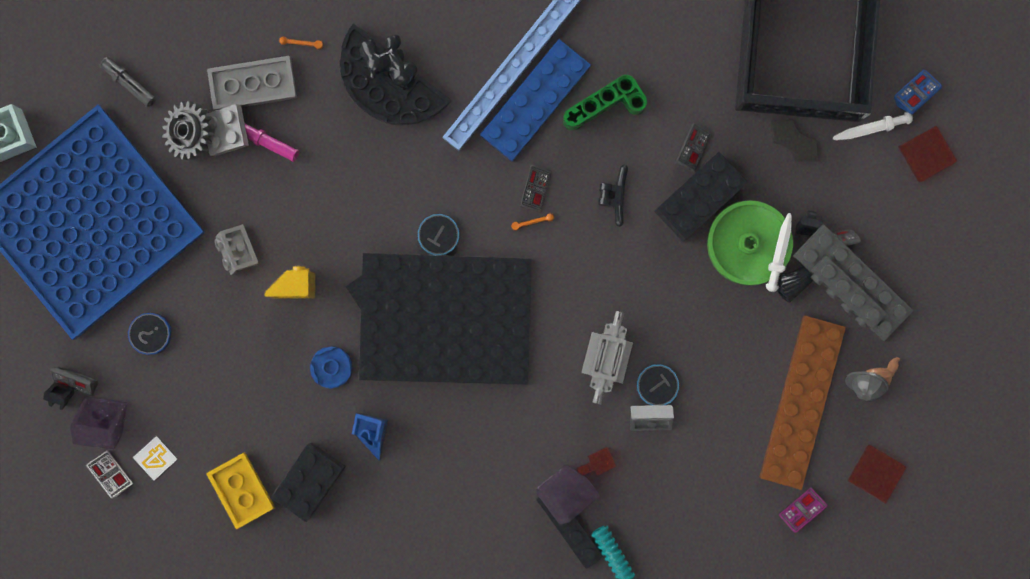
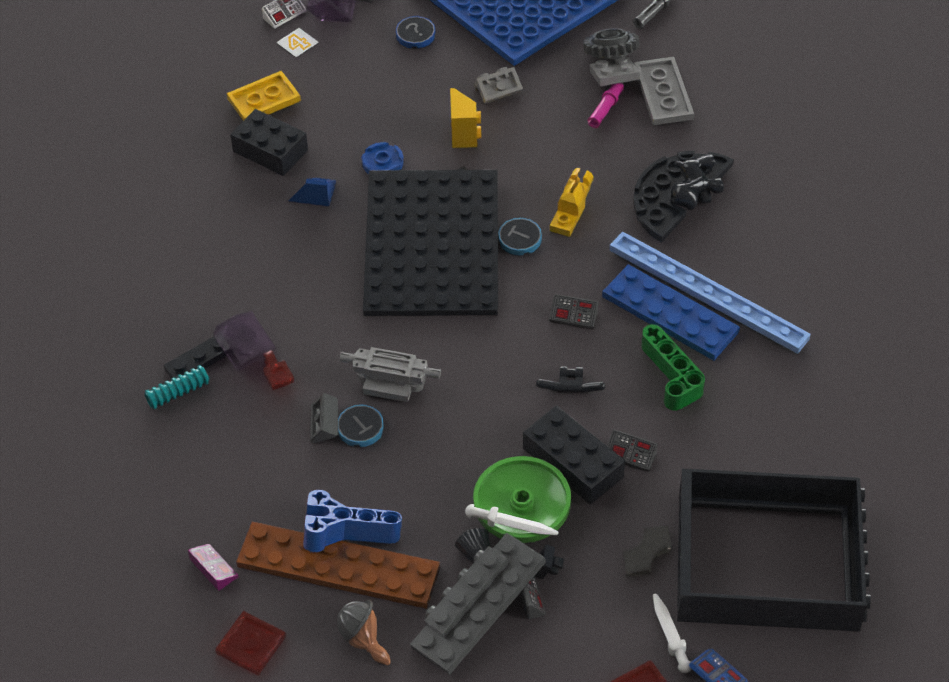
camera: 90 degrees right, 35 degrees down
(318, 44) = (709, 139): orange hinge -> none
(404, 183) = (571, 203): none -> yellow plate
(549, 217) = (533, 300): orange hinge -> none
(761, 408) = (331, 522): none -> blue beam

